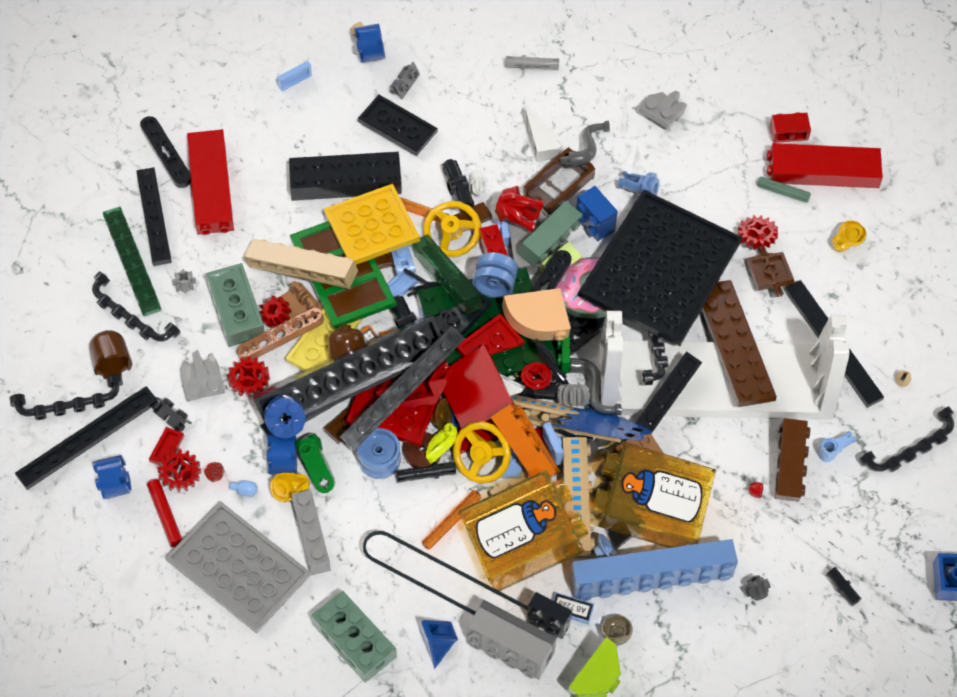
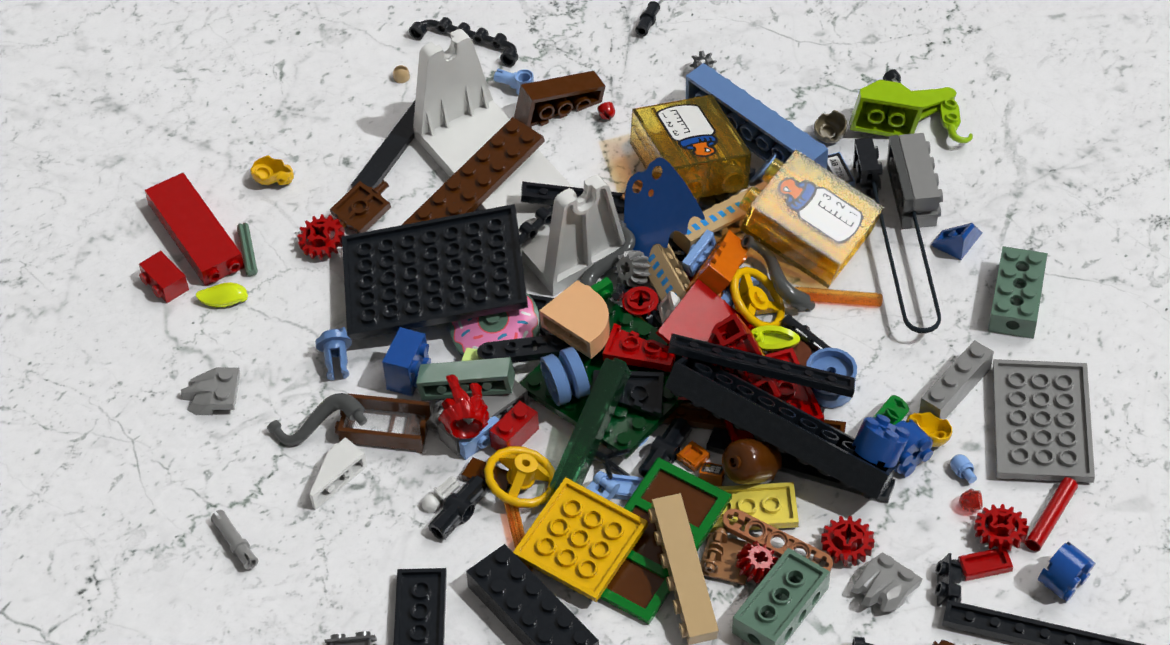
camera: 120 degrees left, 10 degrees down
(472, 475) = (793, 296): none -> dark grey animal
(748, 153) = (222, 295): none -> neon yellow arm

